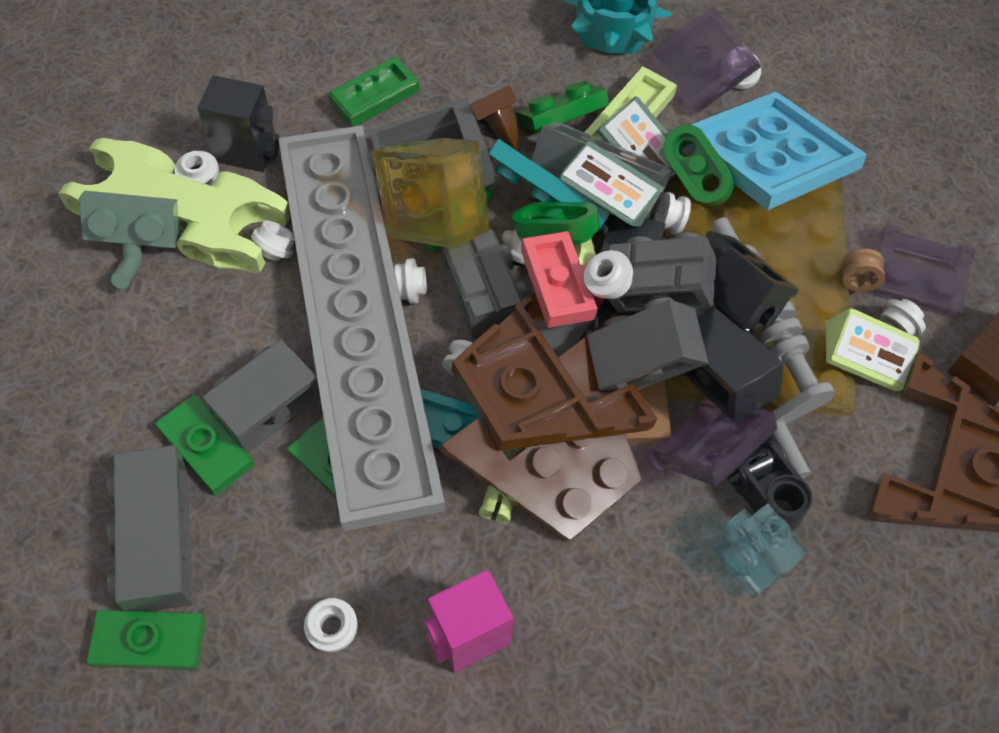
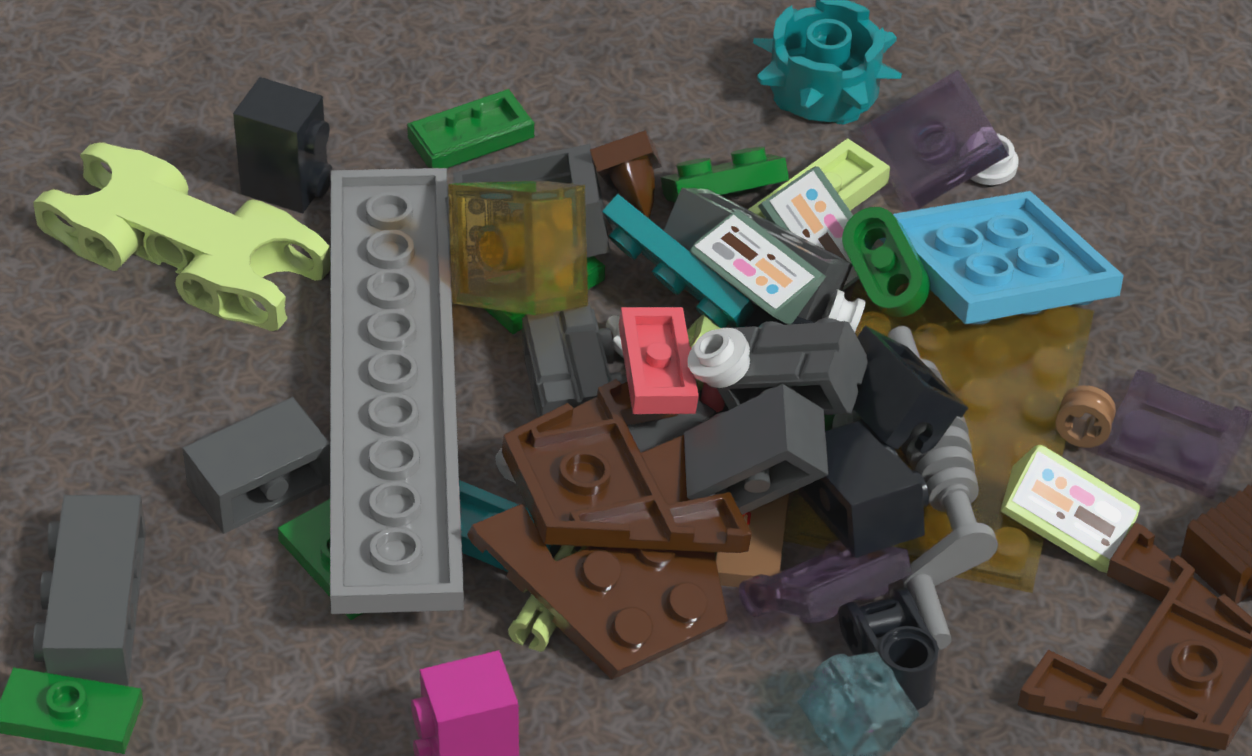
camera: 10 degrees right, 15 degrees down
(129, 221) = (123, 244): sand green plate -> none
(204, 174) = (219, 191): white plate -> none
(205, 444) = (176, 513): green plate -> none
(274, 240) = (303, 292): white plate -> none
(319, 613) = (296, 707): white plate -> none
(410, 280) = (473, 359): white plate -> none
(547, 218) = (701, 300): green plate -> none
(903, 316) = (1132, 479): white plate -> none

